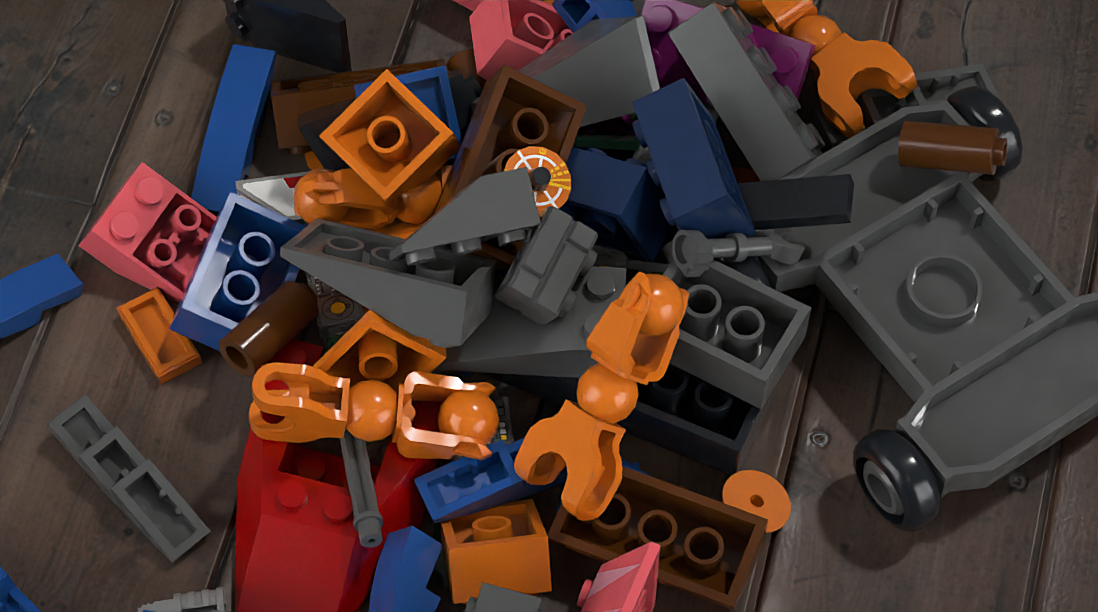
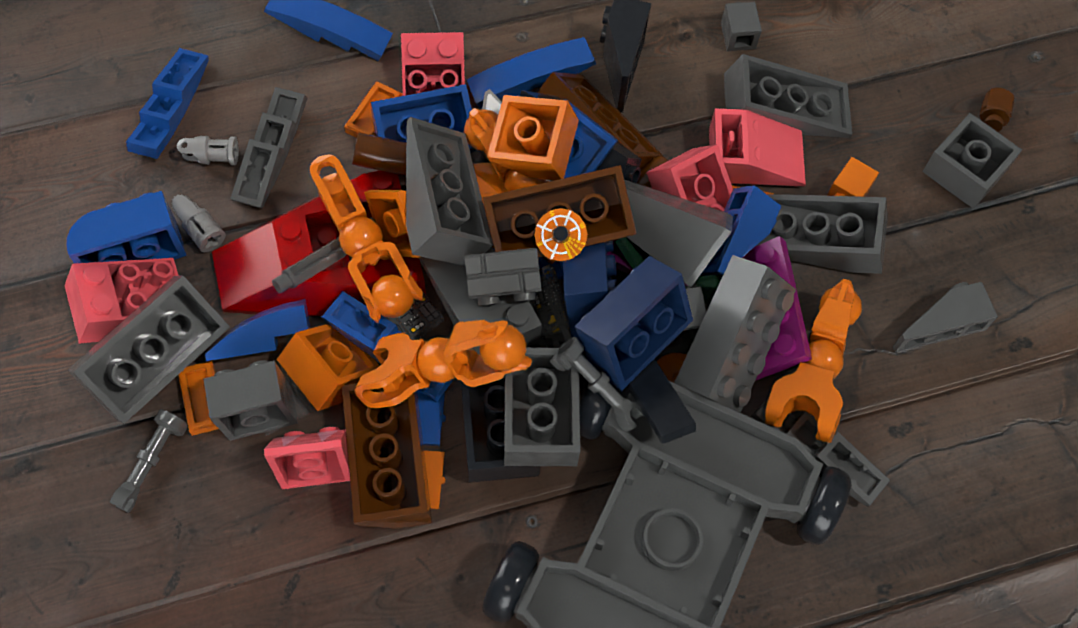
camera: 55 degrees right, 5 degrees up
(80, 555) = (210, 150): none -> light grey piece
(487, 209) = (505, 210): dark grey slope -> none
(758, 495) = (455, 503): orange piece -> none
(951, 147) = (779, 484): reddish brown brick -> none

